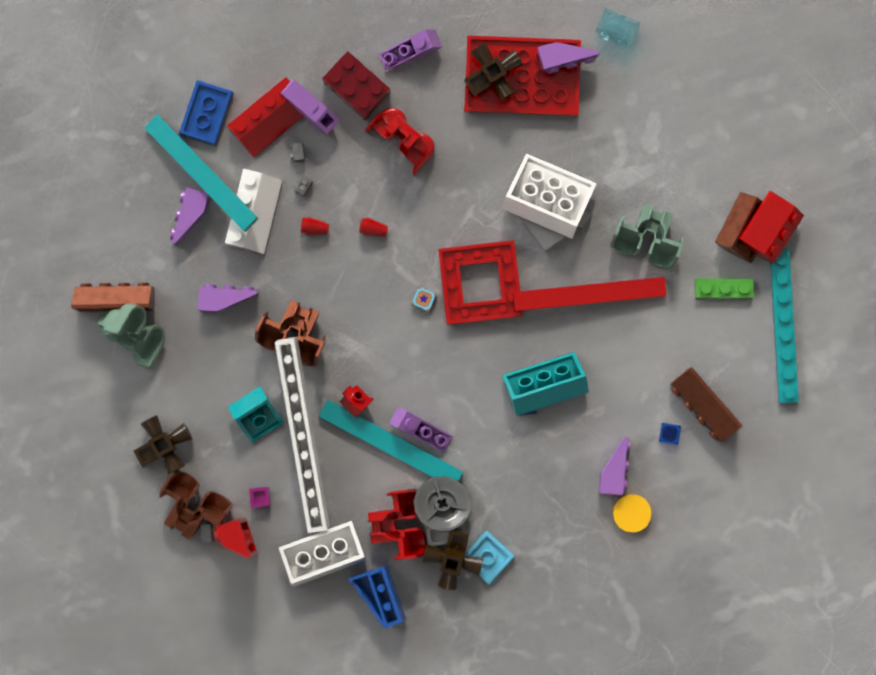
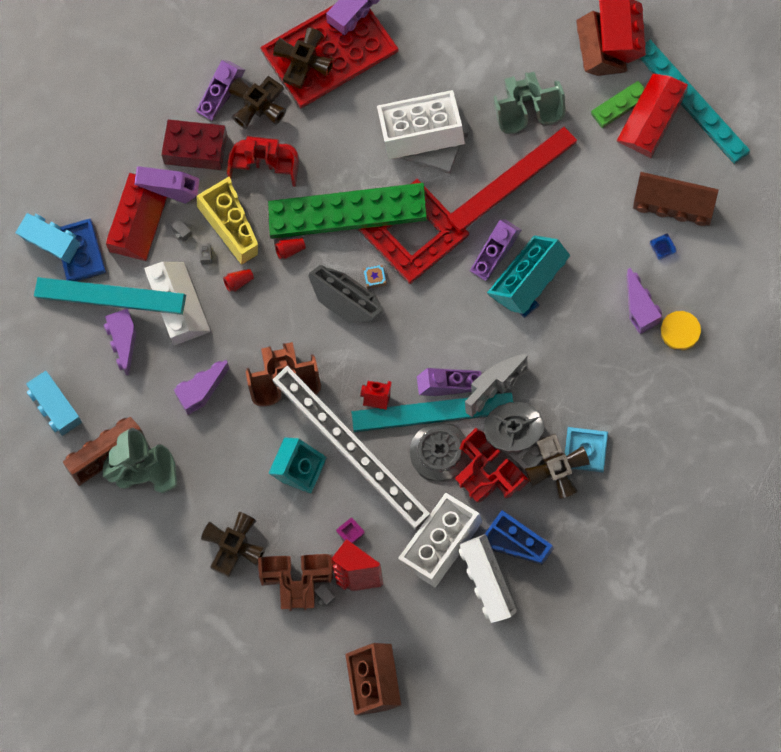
camera: 30 degrees left, 15 degrees down
(100, 231) = (53, 403): none -> medium azure brick
(186, 87) = (48, 237): none -> medium azure brick
(197, 625) = (373, 678): none -> copper slope
(335, 613) = (488, 579): none -> white slope
(340, 165) = (227, 217): none -> light yellow wedge
(362, 469) = (433, 465): none -> dark grey piece
(388, 301) = (344, 295): none -> dark grey wedge
(433, 82) = (257, 101): none -> dark brown brick
(439, 229) = (347, 210): none -> green plate
(461, 454) = (499, 378): none -> light grey slope
(534, 343) = (495, 249): none -> medium lavender slope
(741, 317) = (653, 114): none -> red slope

